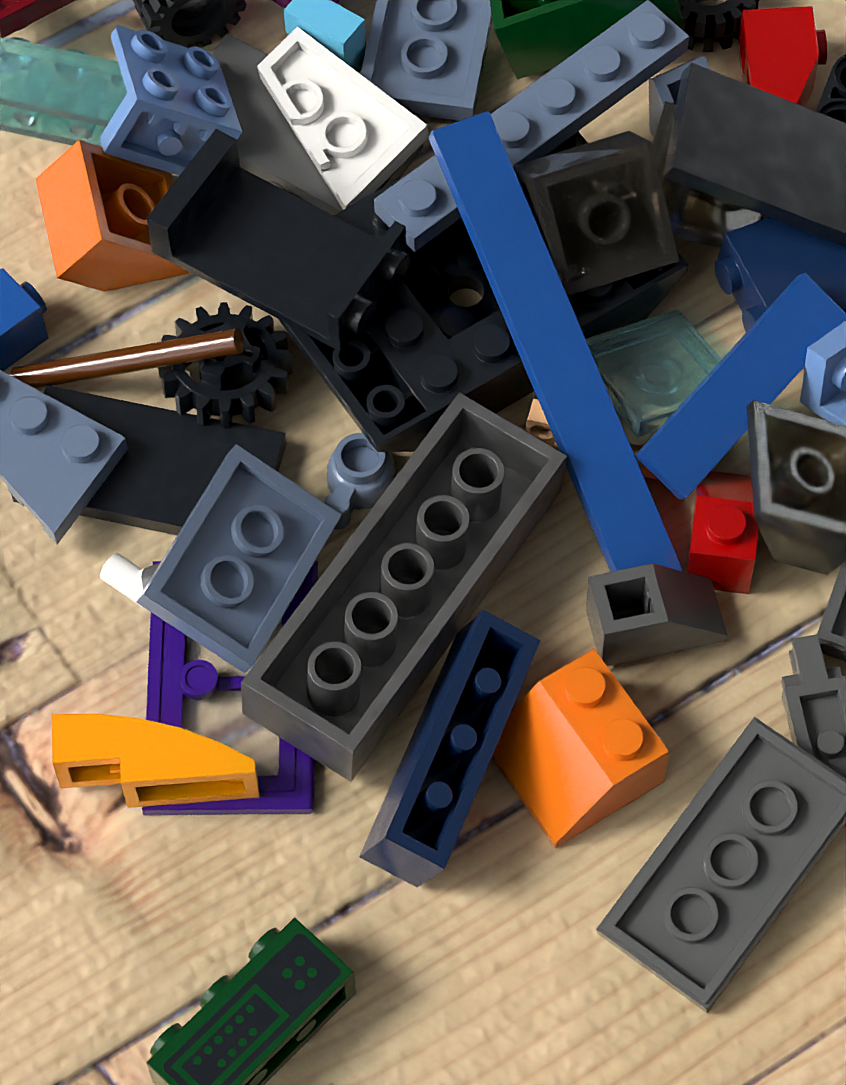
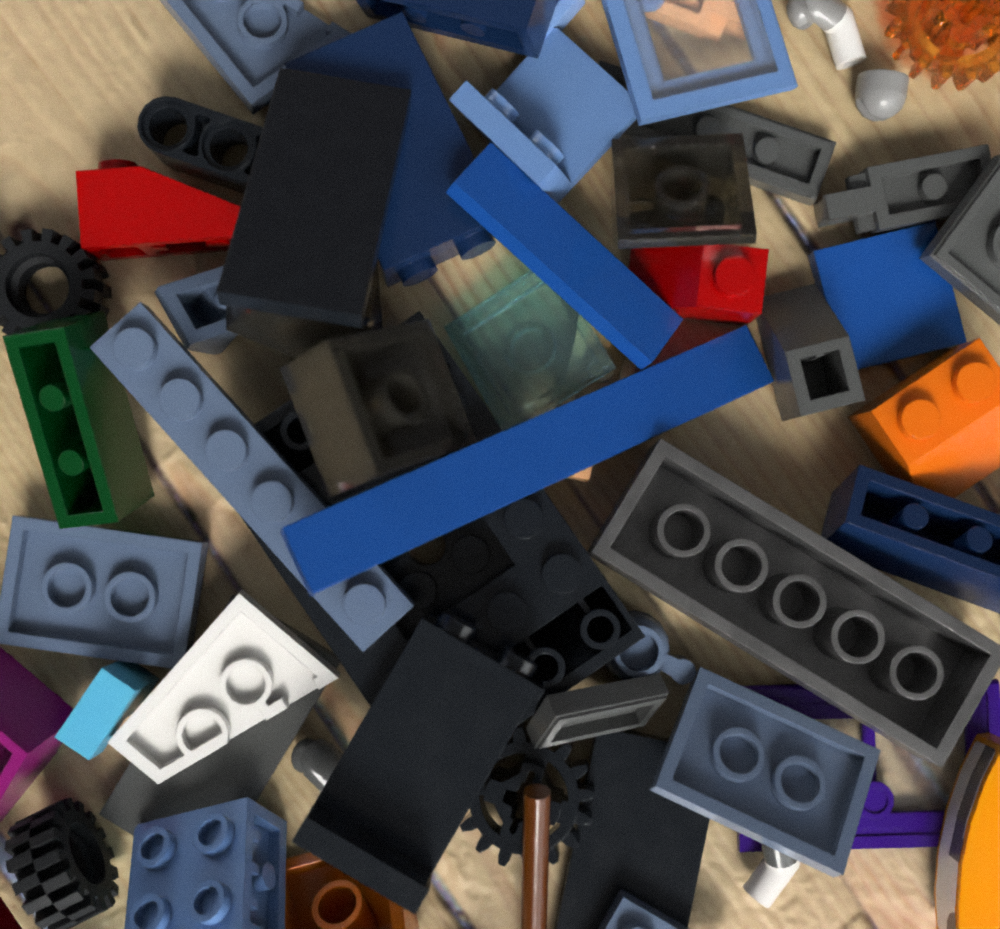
camera: 90 degrees left, 25 degrees up
(305, 414) = (596, 710): none -> dark grey tile
(706, 700) = (888, 296): none -> blue tile

